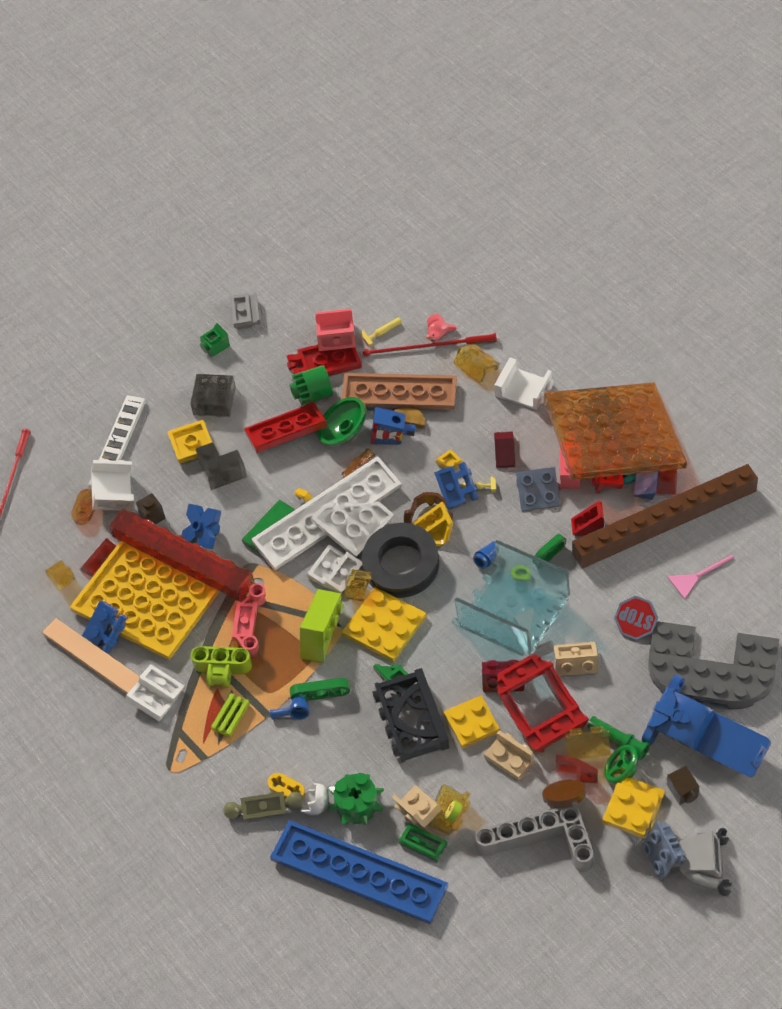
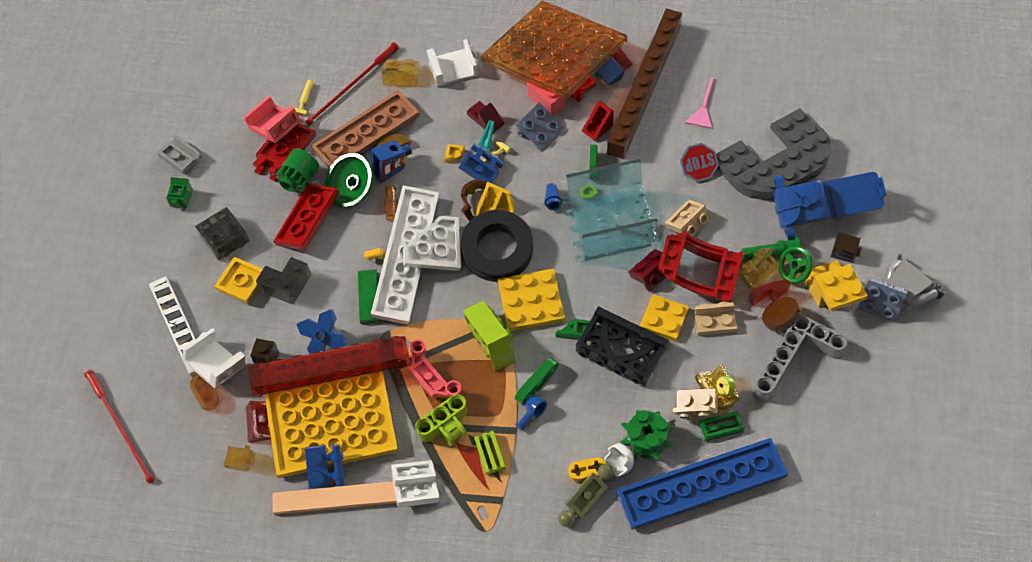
camera: 45 degrees left, 5 degrees up
(333, 569) = (453, 289): white slope -> none
(356, 584) = (483, 286): clear yellow bracket -> none
(438, 328) = (346, 67): coral animal -> none
(484, 468) = (486, 139): none -> teal piece

